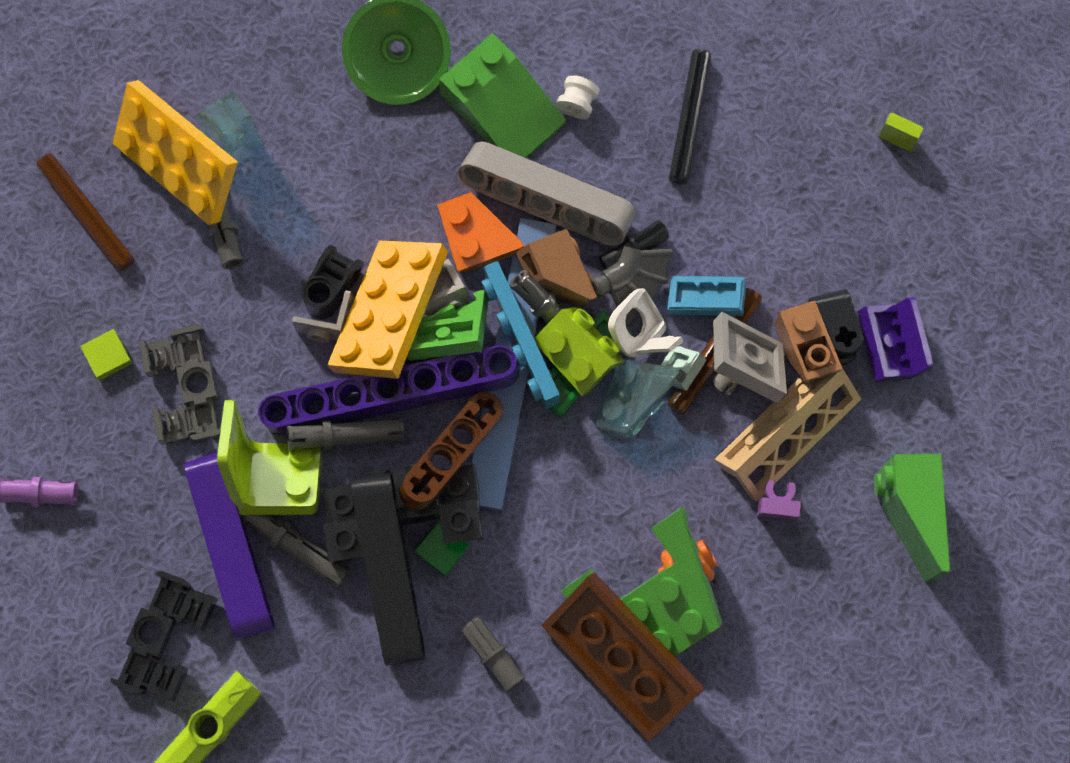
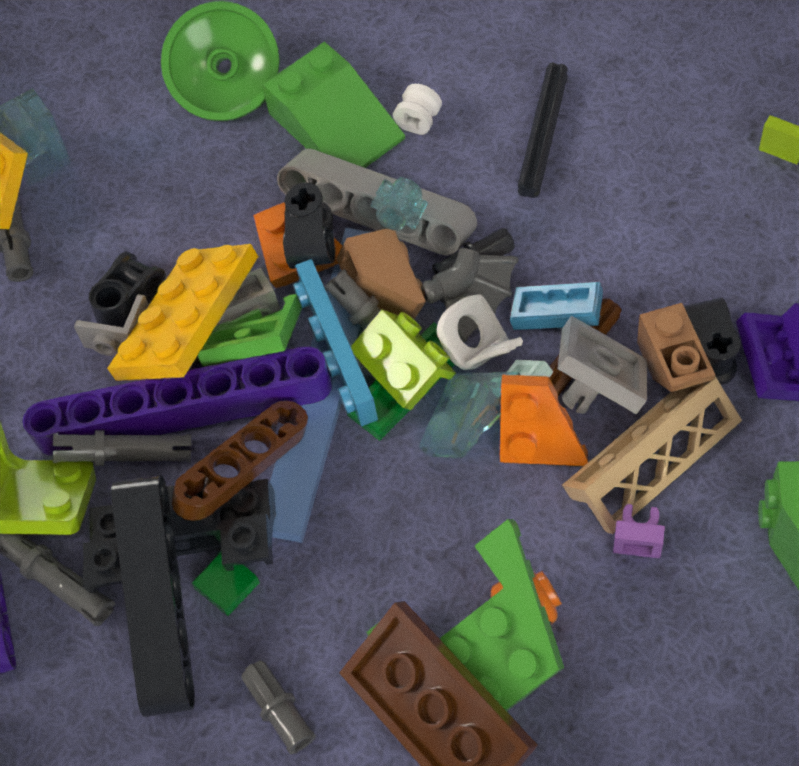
camera: 10 degrees right, 15 degrees down
(493, 234) = (307, 227): none -> black piece
(572, 209) = (399, 204): none -> clear light blue gear
(694, 411) = (536, 425): none -> orange wing

